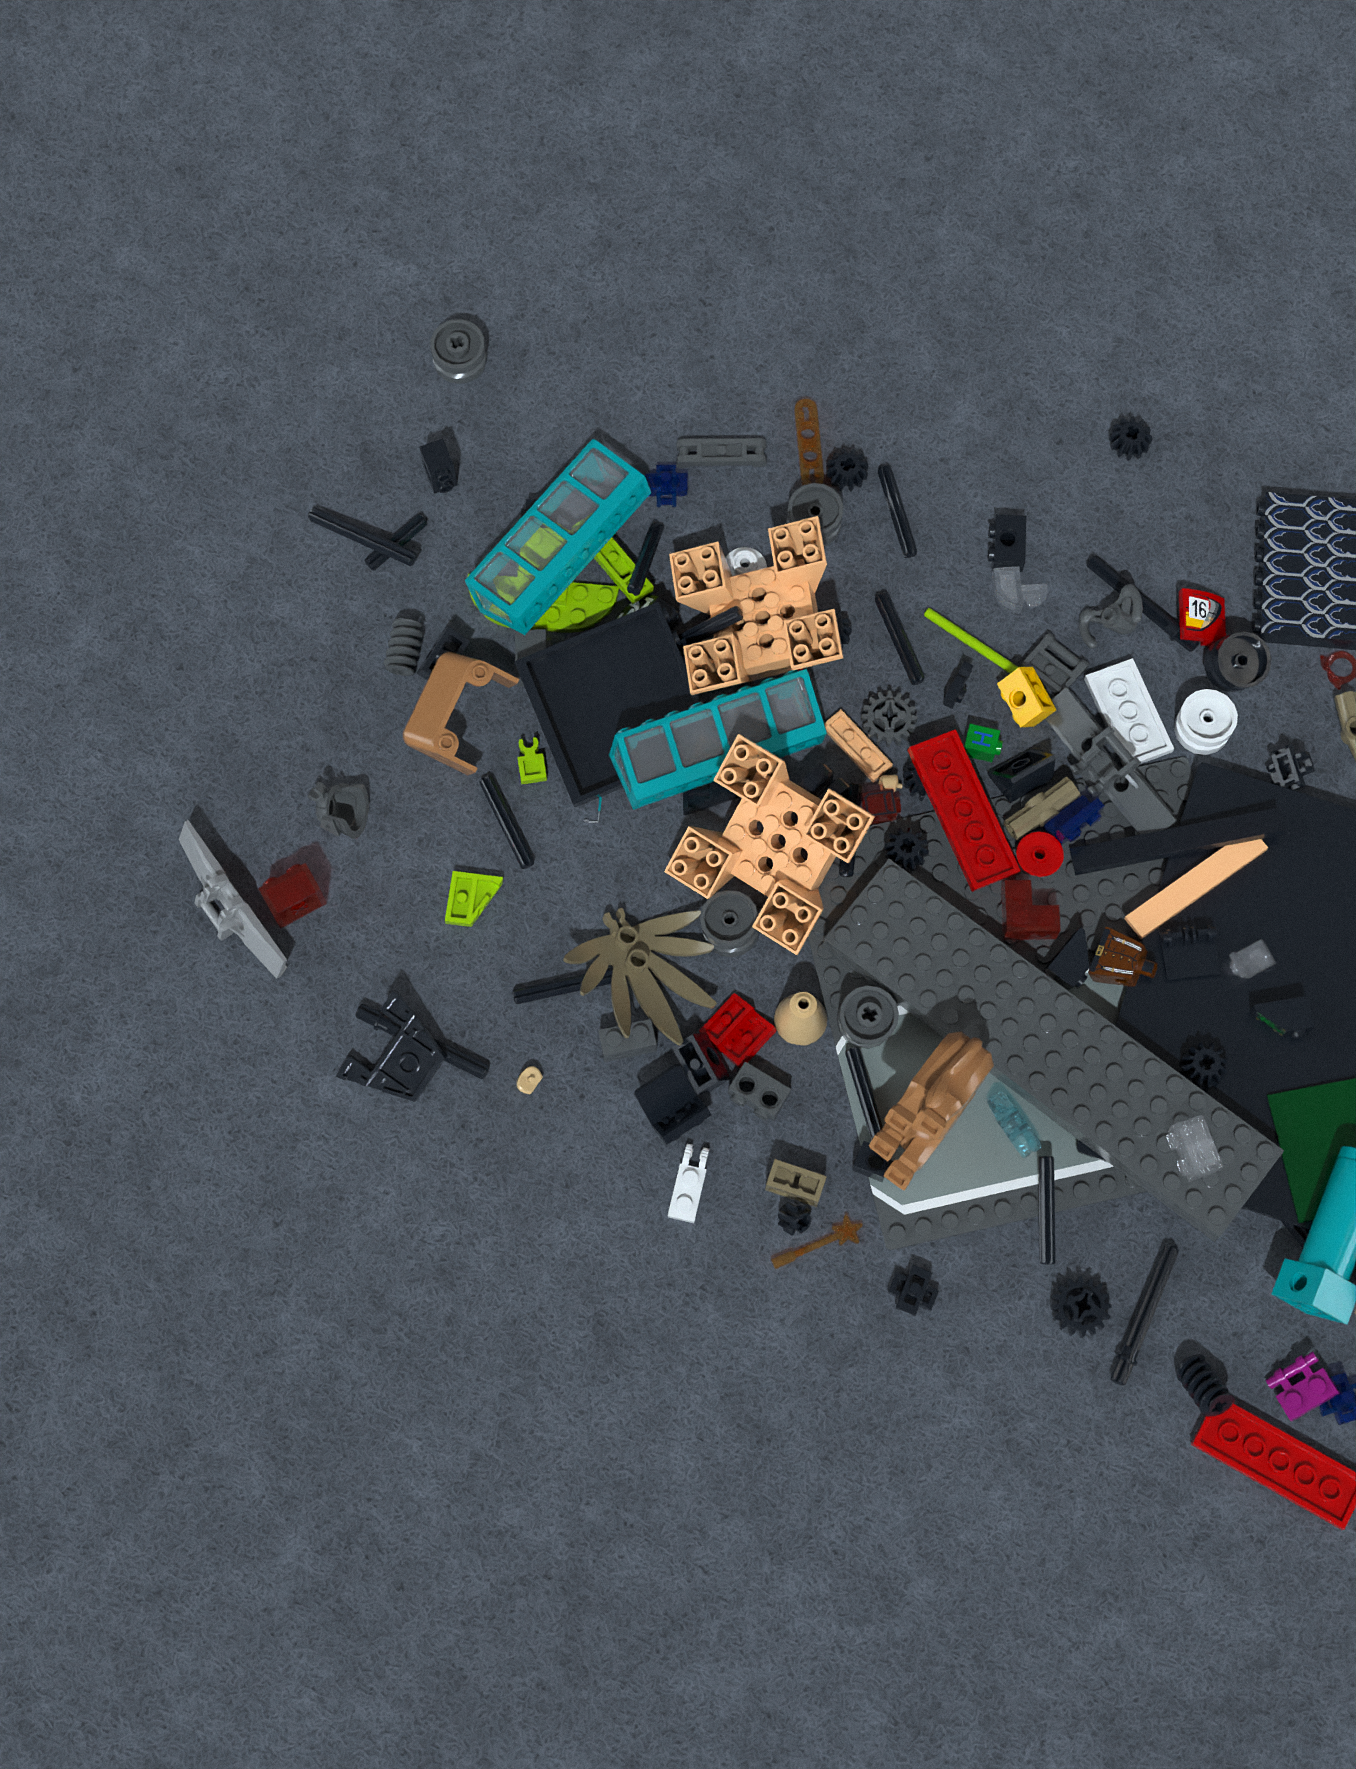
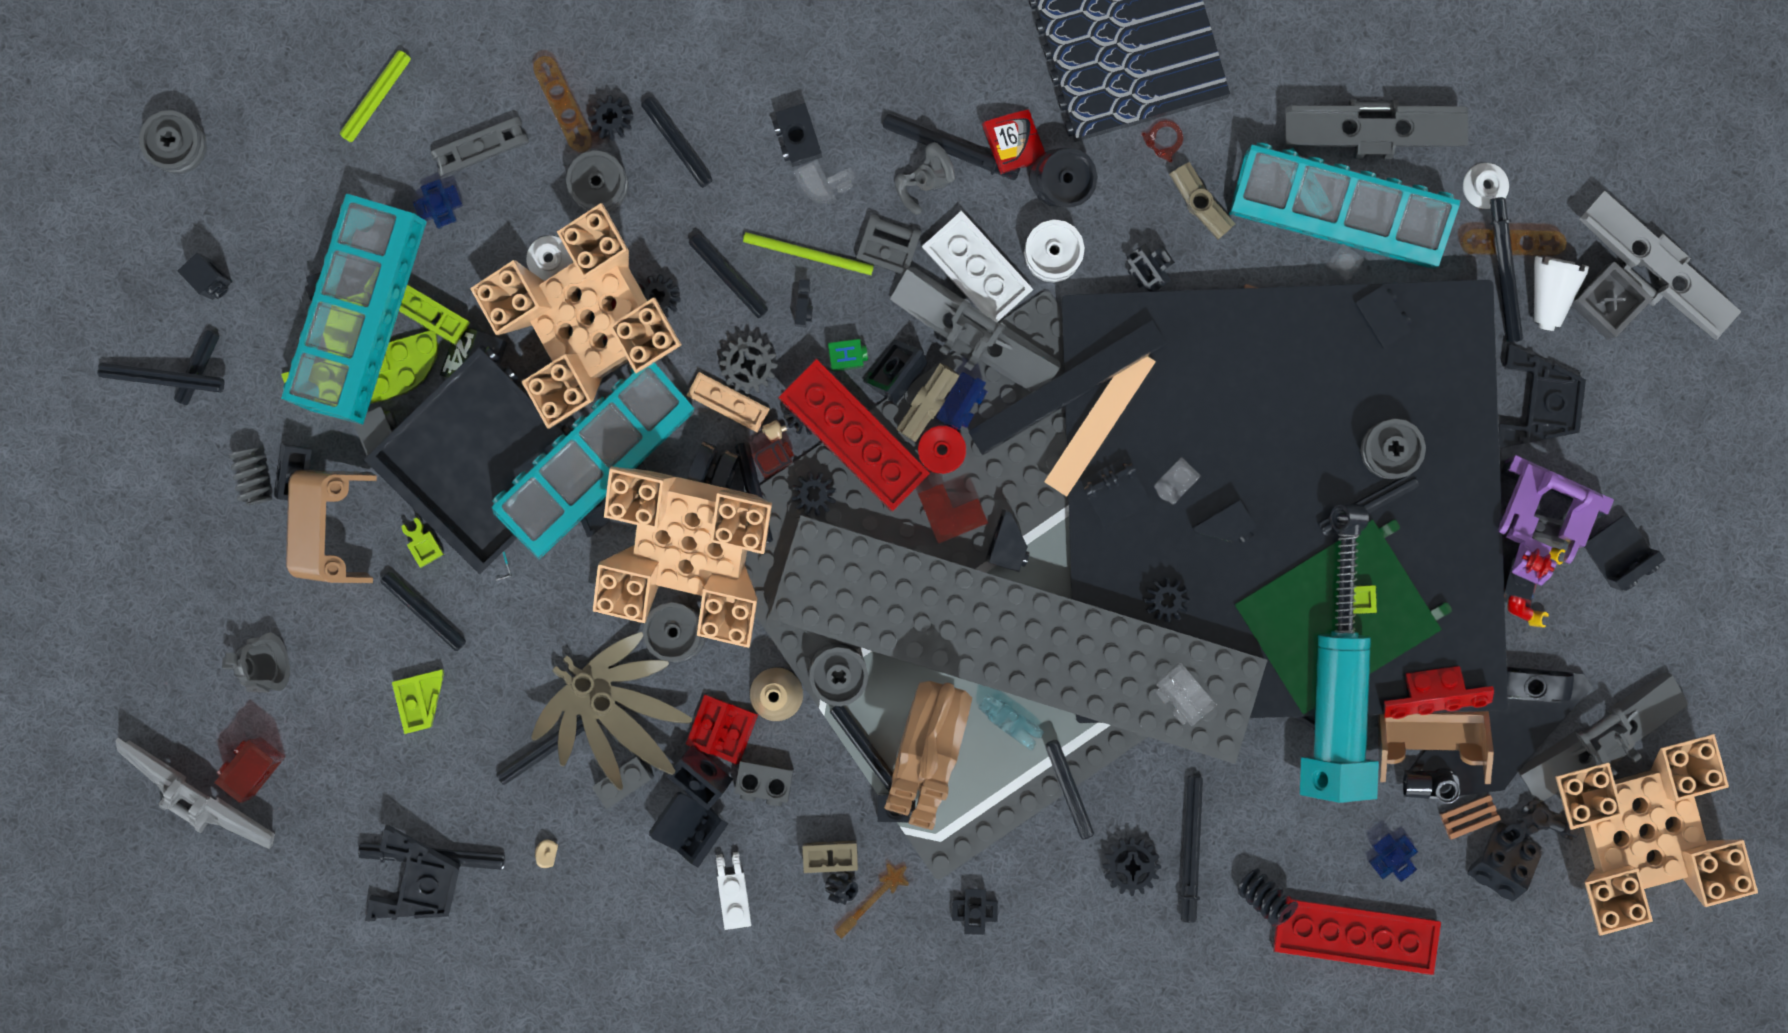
camera: 20 degrees left, 15 degrees up
(645, 558) = (448, 295): black axle -> none
(647, 380) = (375, 96): none -> lime axle
(710, 626) = (538, 347): black axle -> none
(1037, 704) = (872, 292): yellow brick -> none
(1120, 960) = (1054, 526): reddish brown torso -> none
(1306, 1394) = (1362, 865): magenta plate -> none

